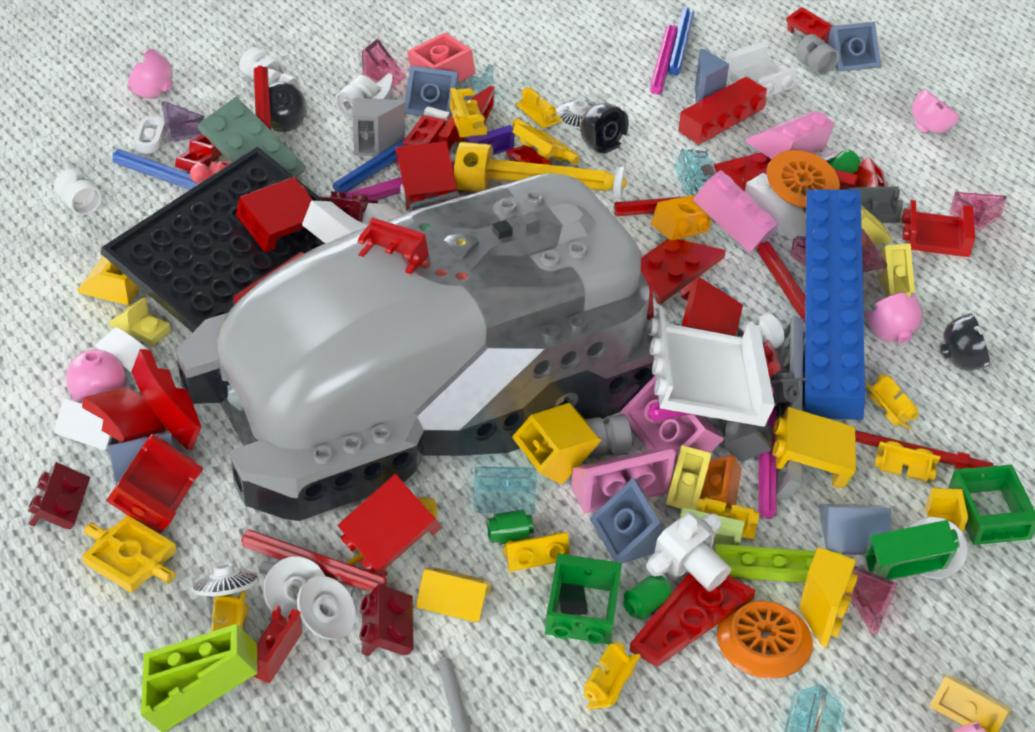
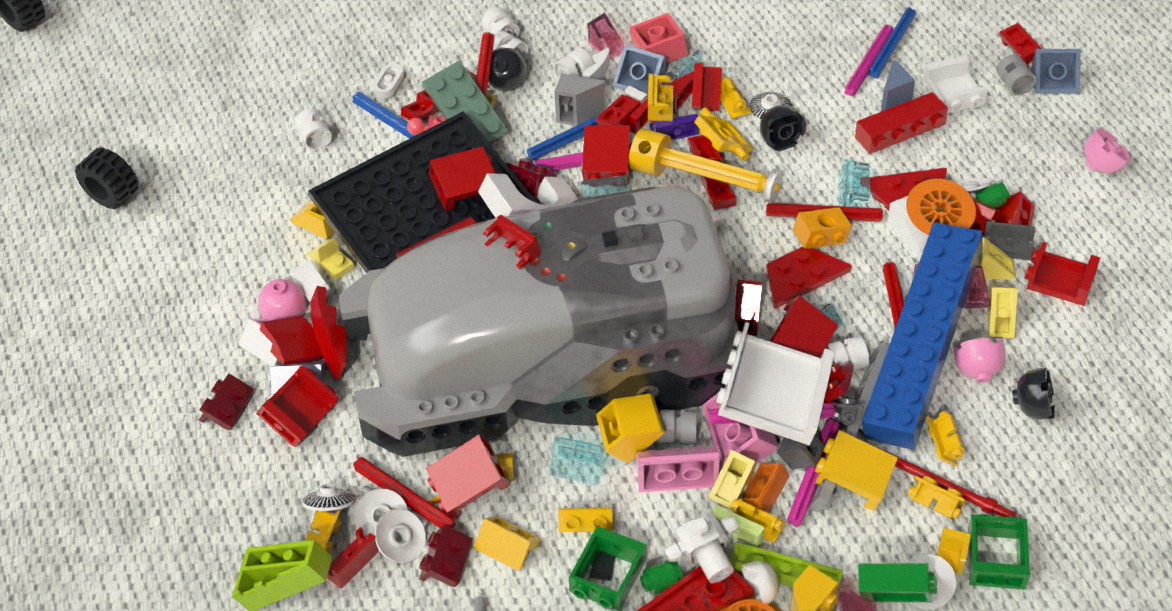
camera: 20 degrees right, 5 degrees up
(129, 553) = (265, 460): yellow plate -> none
(151, 76) = (404, 24): bright pink cylinder -> none
(180, 122) = (414, 72): clear purple slope -> none
(509, 99) = (706, 87): none -> red panel
(509, 527) = (569, 494): green brick -> none
(628, 524) = (666, 509): sand blue slope -> none
(735, 211) = (869, 230): bright pink slope -> none
(763, 576) = (762, 578): none -> white hair
(802, 133) = (958, 160): bright pink slope -> none
(850, 526) = (864, 546): sand blue slope -> none
(986, 207) = (1113, 259): clear pink slope -> none

